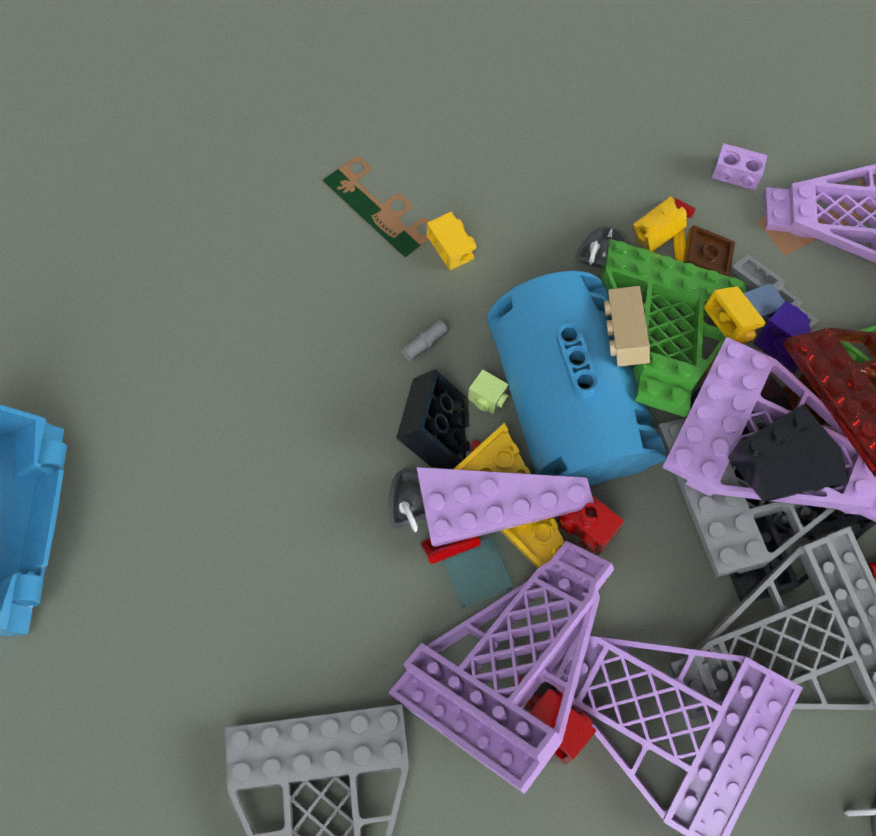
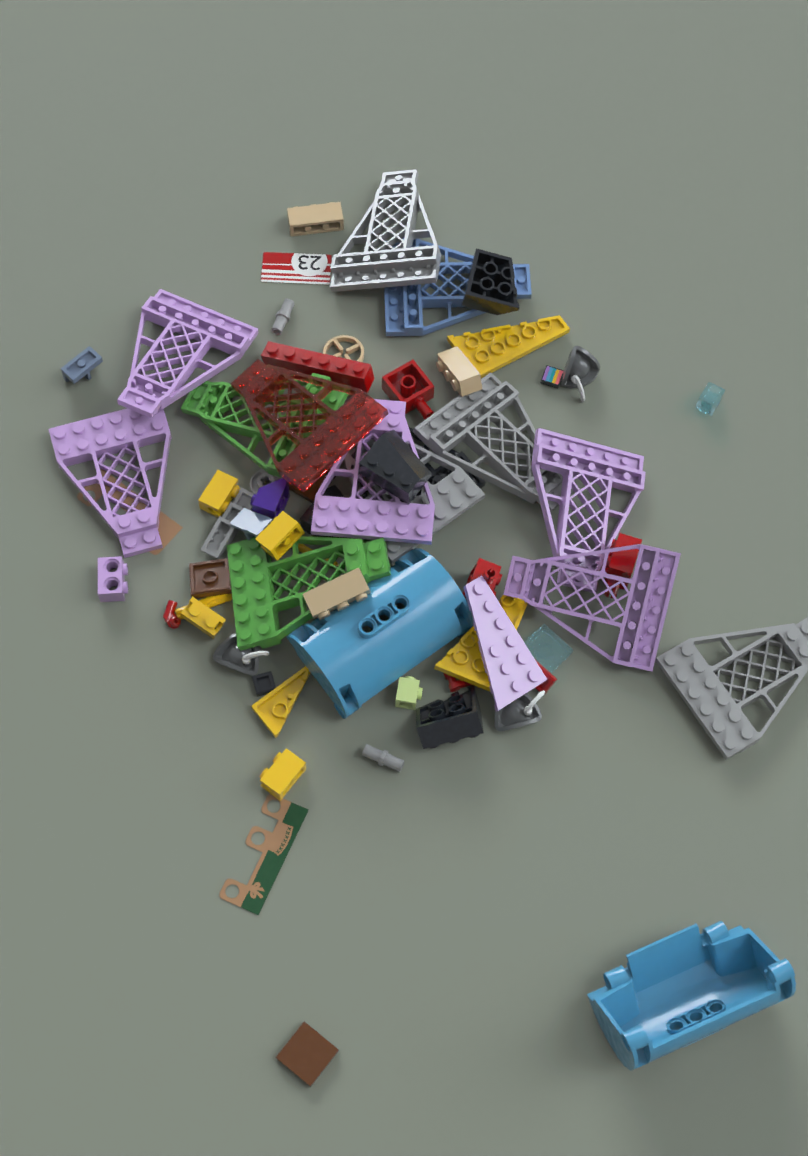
camera: 115 degrees left, 0 degrees up
(171, 171) = (307, 1054): none -> reddish brown tile
(526, 259) = (277, 704): none -> yellow wing
(562, 262) = (263, 683): none -> black tile
(818, 295) = (219, 493): none -> yellow brick

